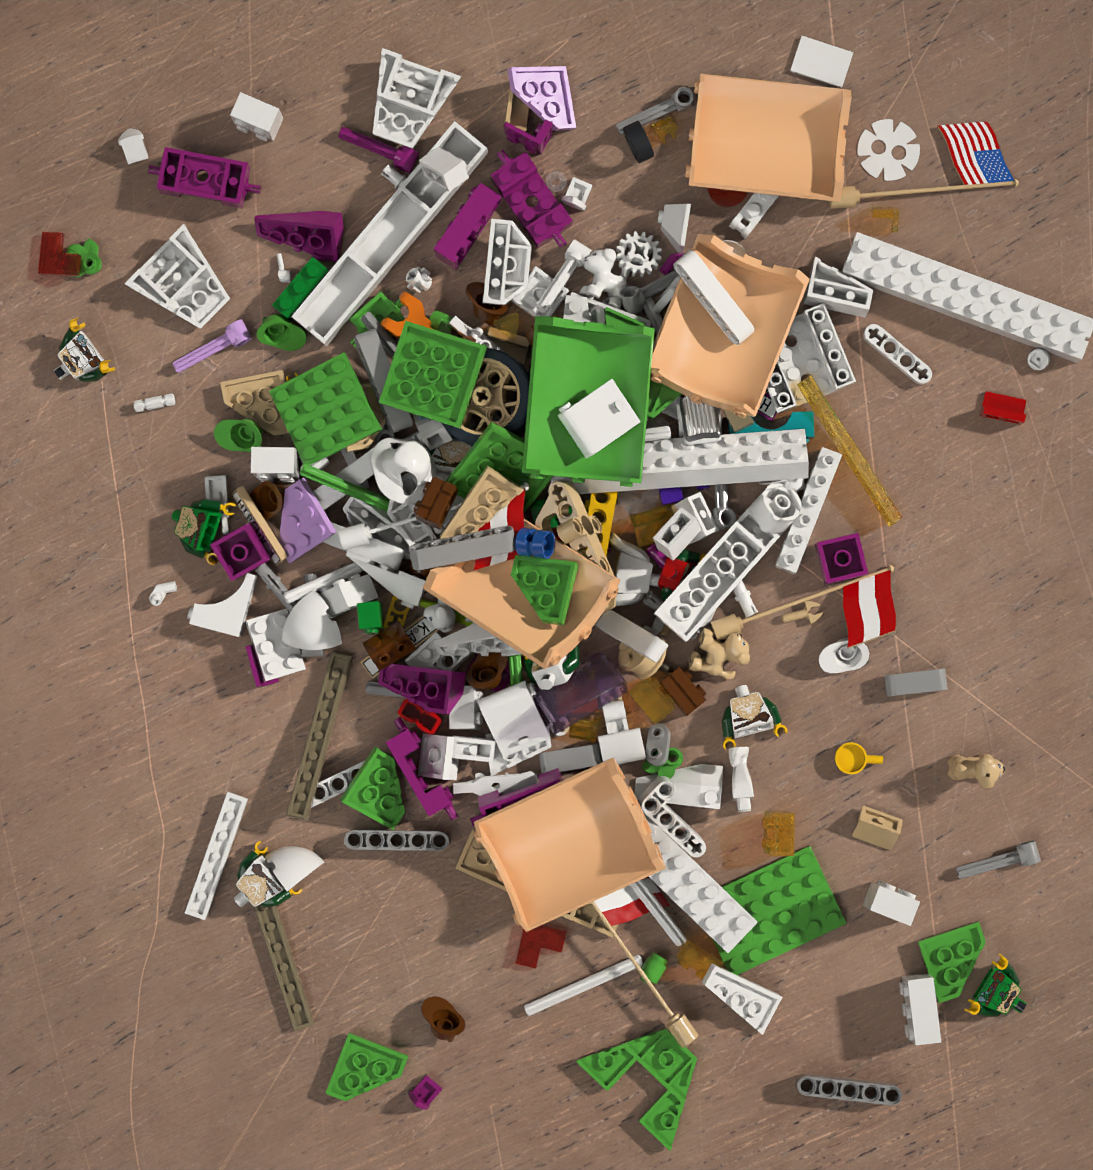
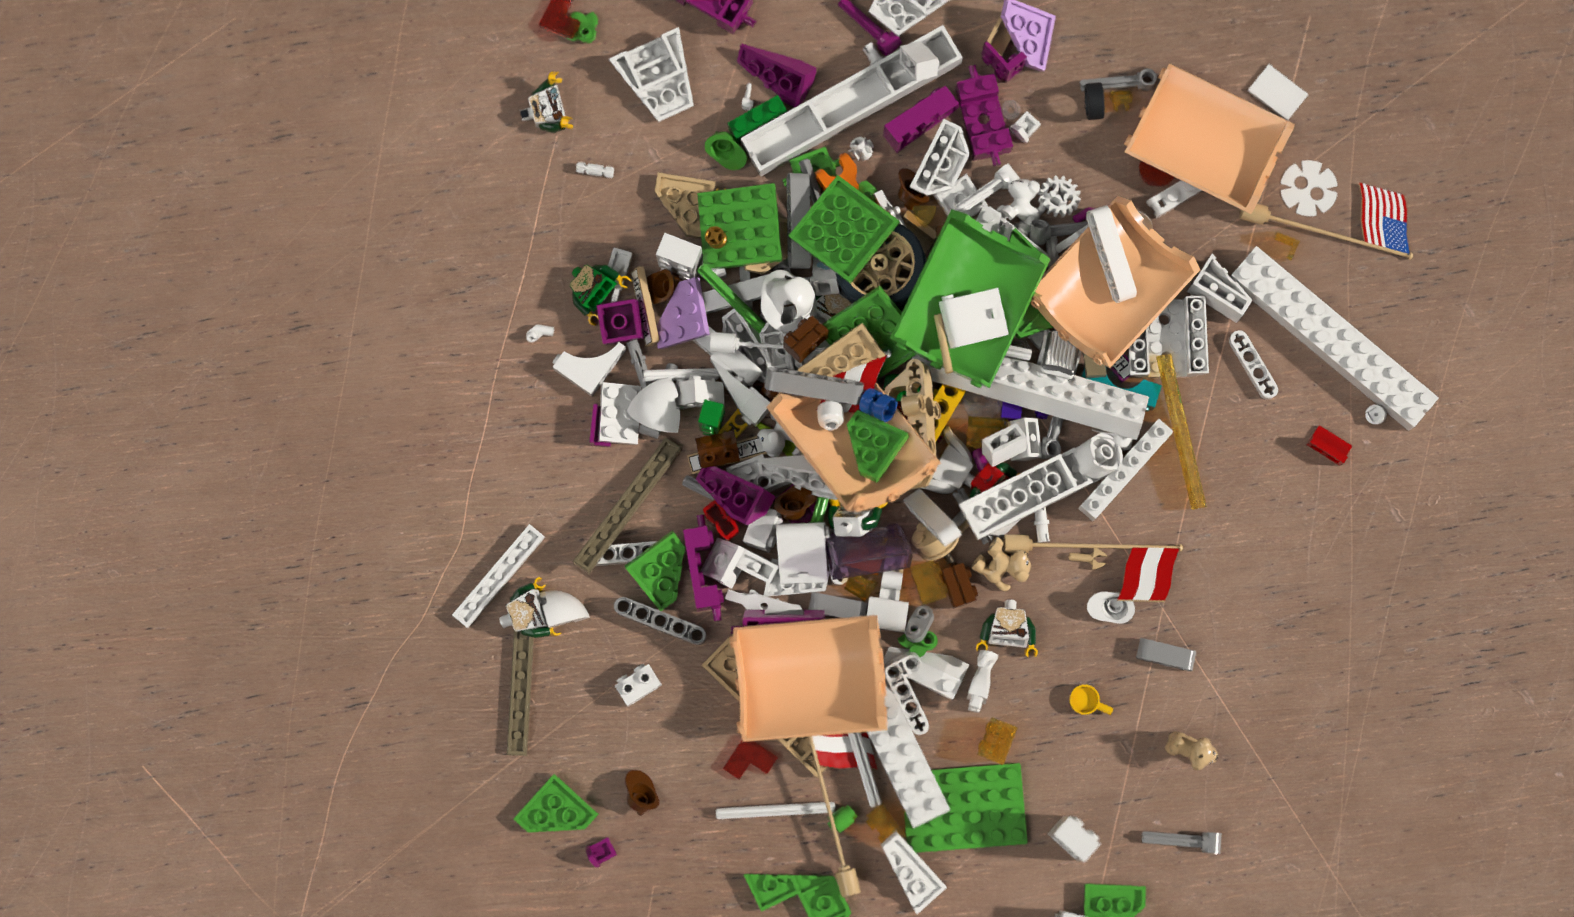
camera: 20 degrees right, 5 degrees down
(236, 334) = (687, 138): lavender axle -> none
(238, 434) = (656, 221): bright green piece -> none
(301, 429) = (714, 233): none -> pearl gold wheel
(399, 912) = (638, 684): none -> white brick
(490, 571) = (830, 415): none -> white head
(578, 456) = (943, 343): none -> tan bar
(674, 224) = (1100, 181): white slope -> none
(841, 558) = (1140, 522): magenta brick -> none
(877, 828) = (1085, 770): tan panel -> none

